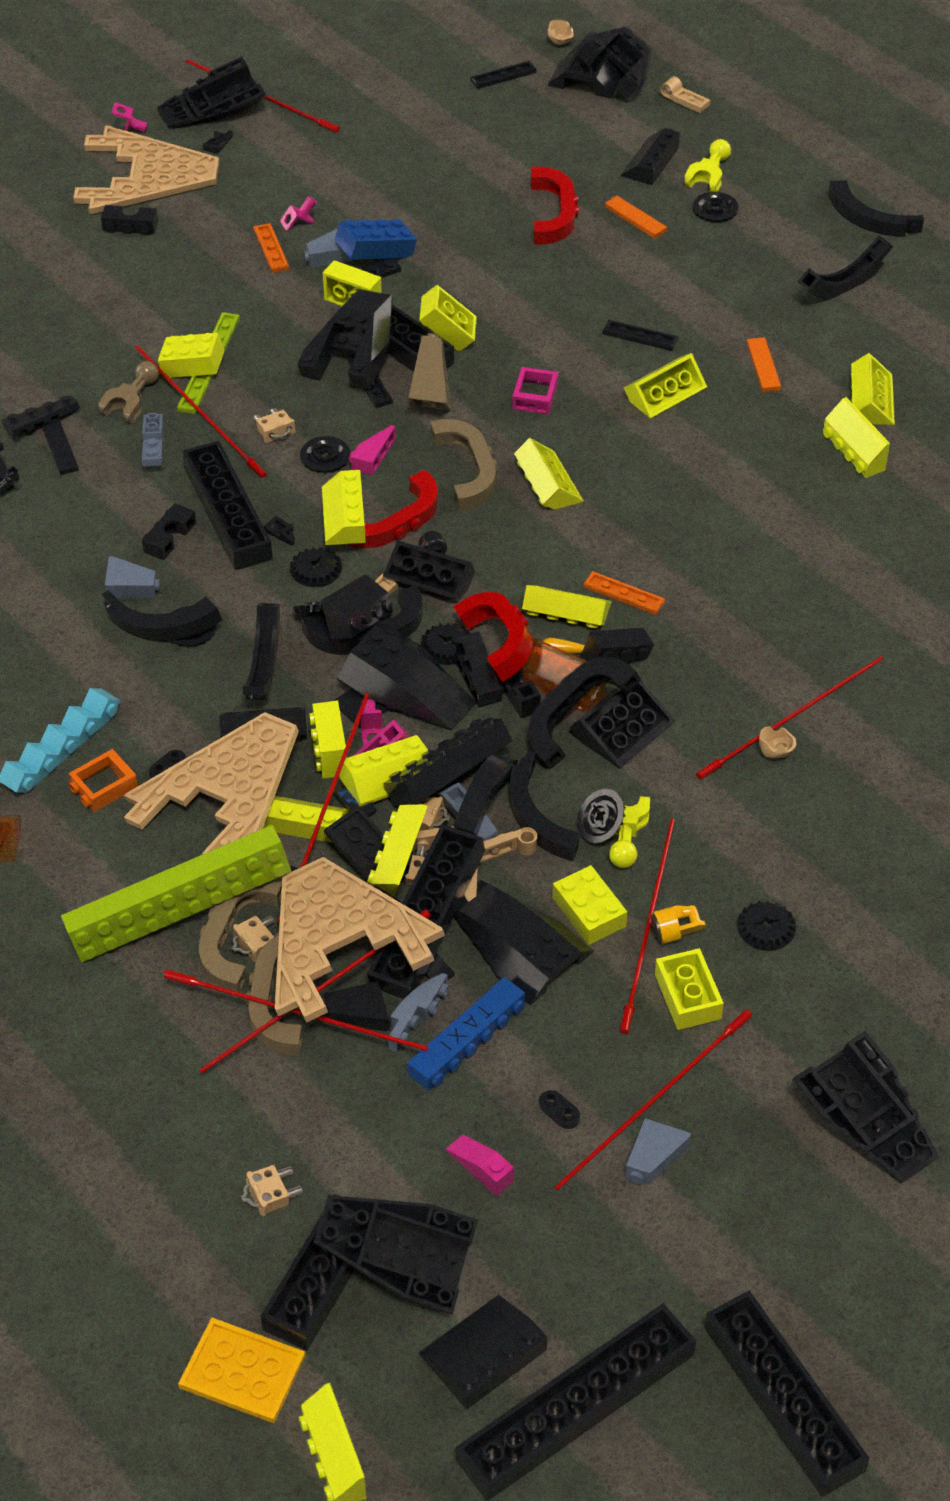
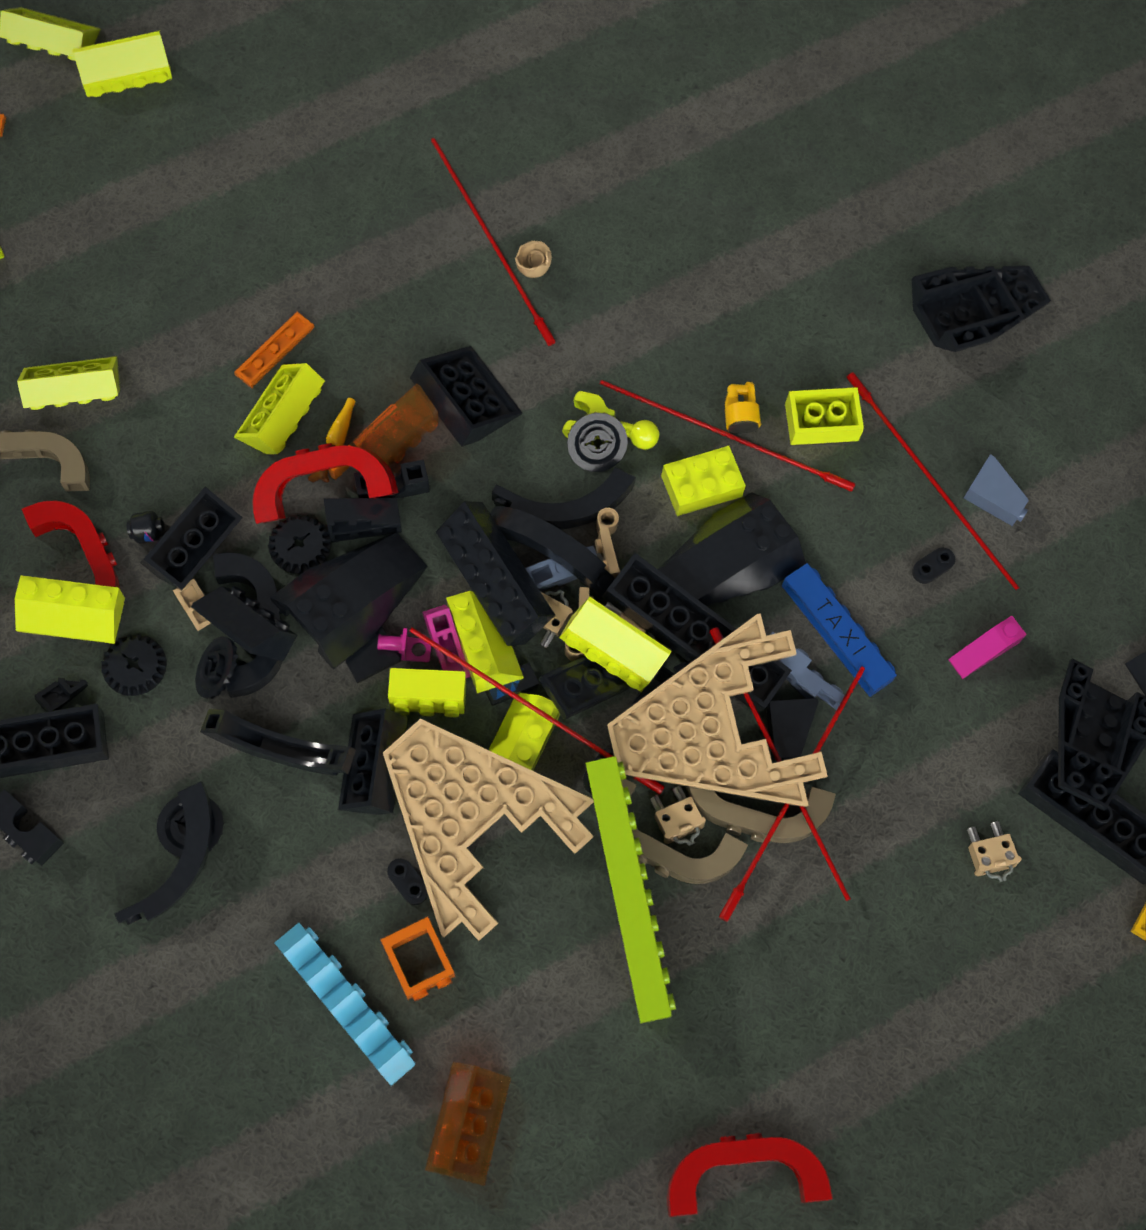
camera: 85 degrees left, 20 degrees up
(130, 580) = (94, 888): sand blue slope -> none
(567, 694) = (437, 436): black arch -> none
(623, 644) = (366, 375): black wedge -> none
(757, 935) = (738, 340): black gear -> none

